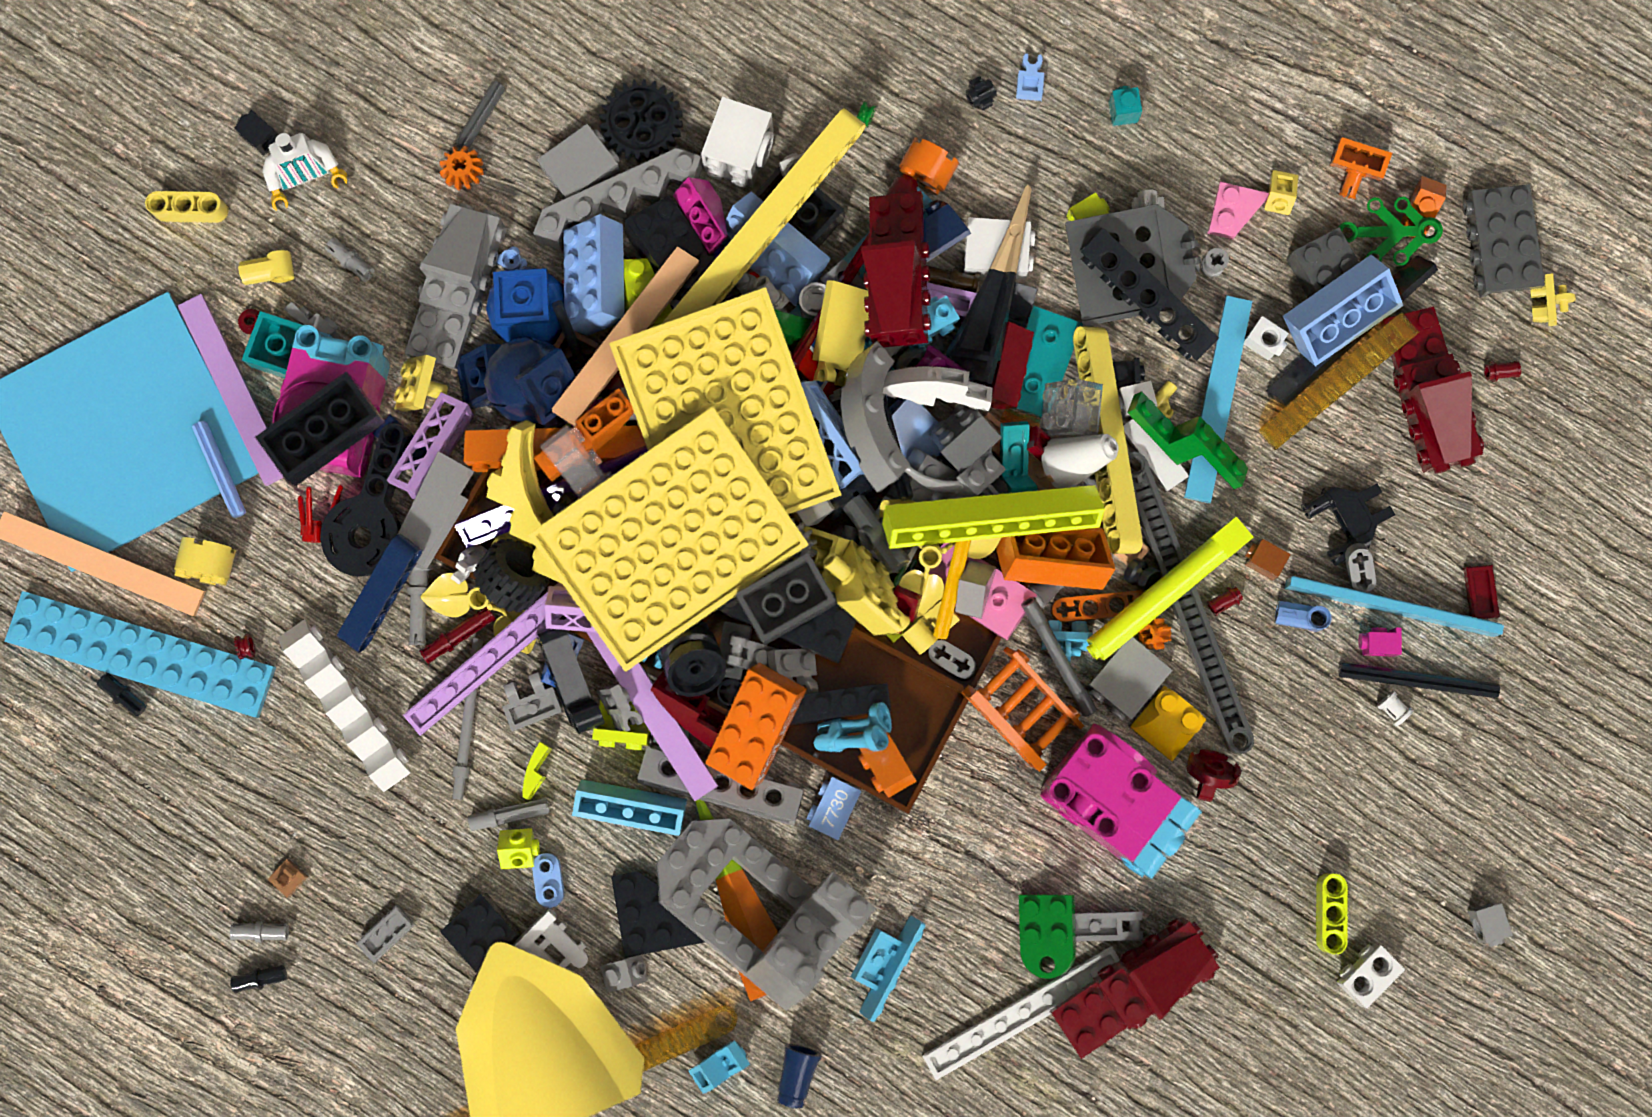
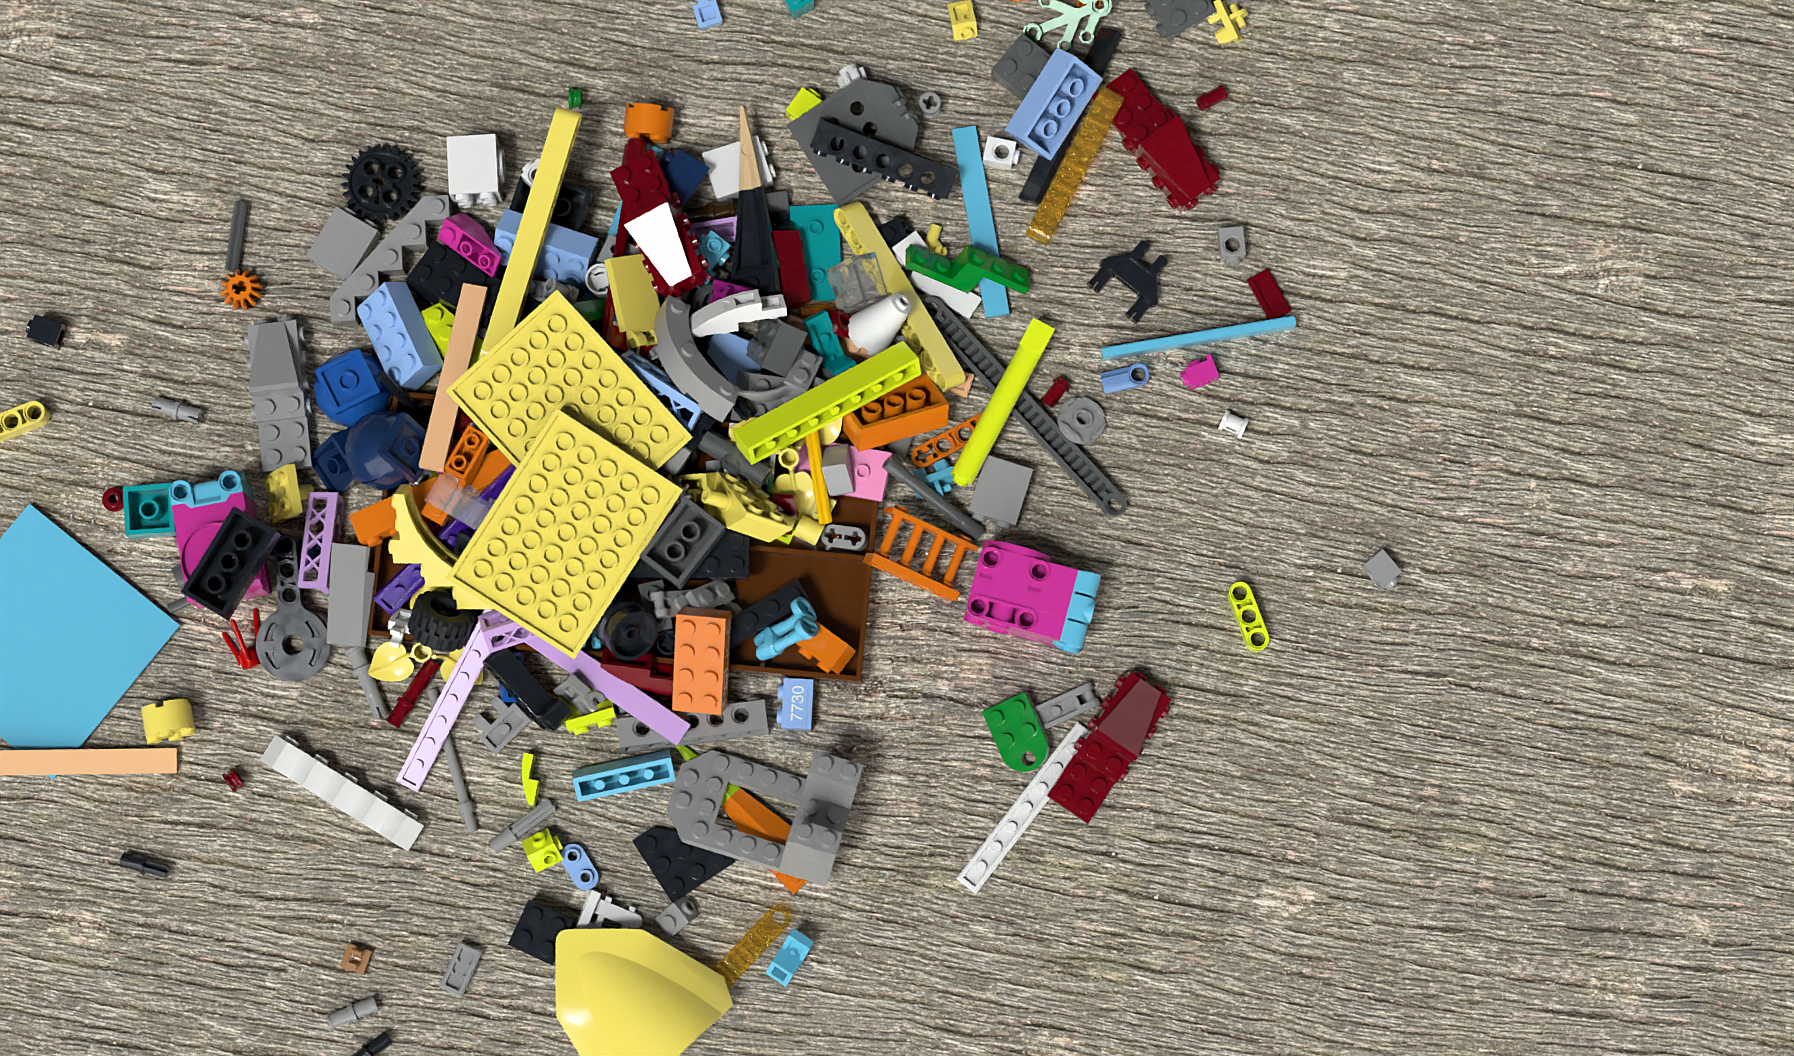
camera: 25 degrees left, 0 degrees up
(140, 654) = (144, 825): medium azure plate -> none
(219, 469) = (144, 638): light blue axle -> none
(229, 382) = (125, 564): lavender tile -> none
(275, 268) = (114, 444): light yellow piece -> none
(296, 162) = (95, 343): white torso -> none
(304, 317) = (159, 476): light grey slope -> none
(379, 593) = (332, 684): dark blue beam -> none
(511, 254) = (318, 345): light blue plate -> none
(797, 1074) = (857, 937): dark blue plant -> none
(883, 963) = (891, 816): medium azure bracket -> none
(981, 93) = (667, 39): black gear -> none
(1140, 574) = (972, 399): black wheel -> none
(1155, 634) = (1007, 445): orange gear -> none
(1168, 723) = (1049, 515): yellow slope -> none
(1212, 772) = (1101, 539): dark red tile -> none
(1233, 209) = (927, 51): bright pink wing -> none
(1251, 640) = (1088, 412): none -> light grey plate
(1266, 559) = (1075, 342): dark orange brick -> none
(1365, 567) = (1161, 314): light grey beam -> none
(1374, 982) = (1305, 657): white brick -> none
(1419, 680) = (1244, 391): black axle -> none
(1469, 515) = (1235, 235): none -> light grey brick

